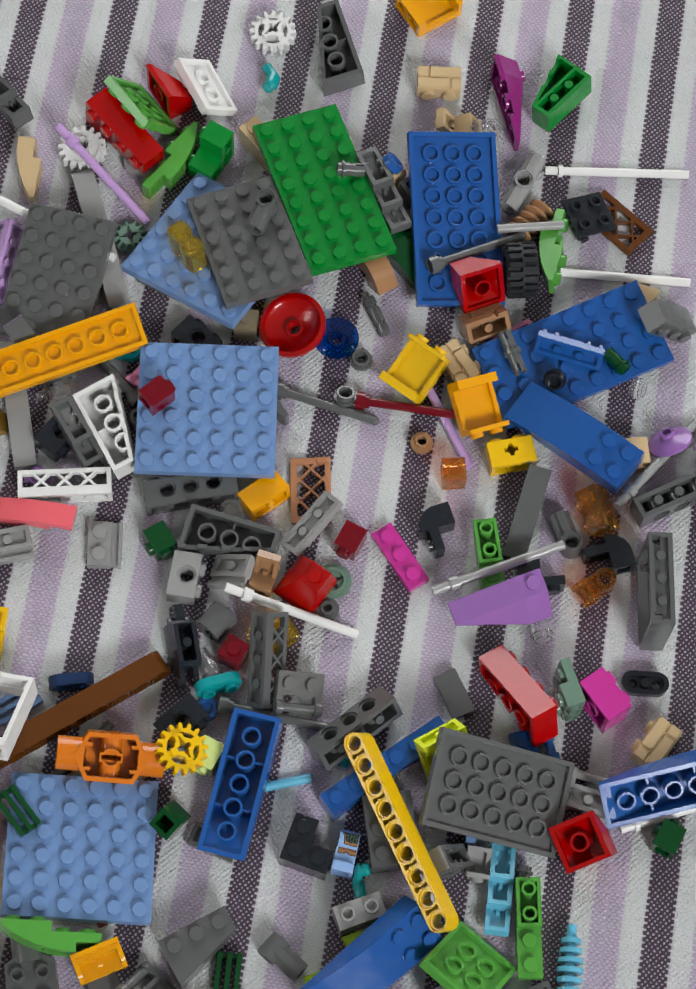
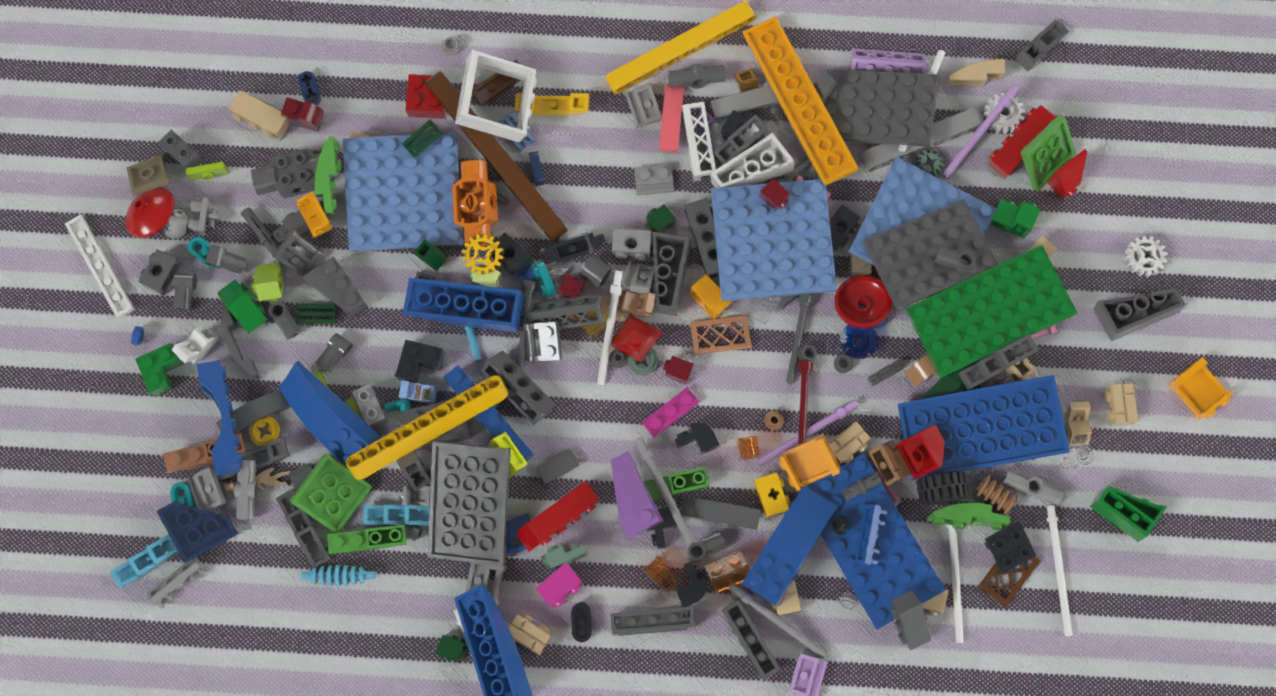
camera: 90 degrees right, 10 degrees up
(174, 167) = (997, 188): bright green slope -> none
(187, 246) = (916, 203): clear yellow brick -> none
(205, 87) = (1079, 204): white plate -> none
(273, 78) = (1101, 262): teal arm -> none
(311, 523) = (686, 336): light grey plate -> none
(350, 169) = (1009, 329): dark grey pin -> none
(393, 163) = (1024, 366): blue tile -> none
(416, 368) = (836, 407): yellow panel -> none
(437, 263) = (935, 415): dark grey piece -> none
(508, 86) = (1125, 468): magenta wedge -> none
(531, 226) = (984, 493): light grey bar -> none
(582, 841) = (439, 578): red slope -> none
(616, 361) = (864, 576): dark green pin -> none
(670, 441) = (800, 631): medium lavender dish -> none

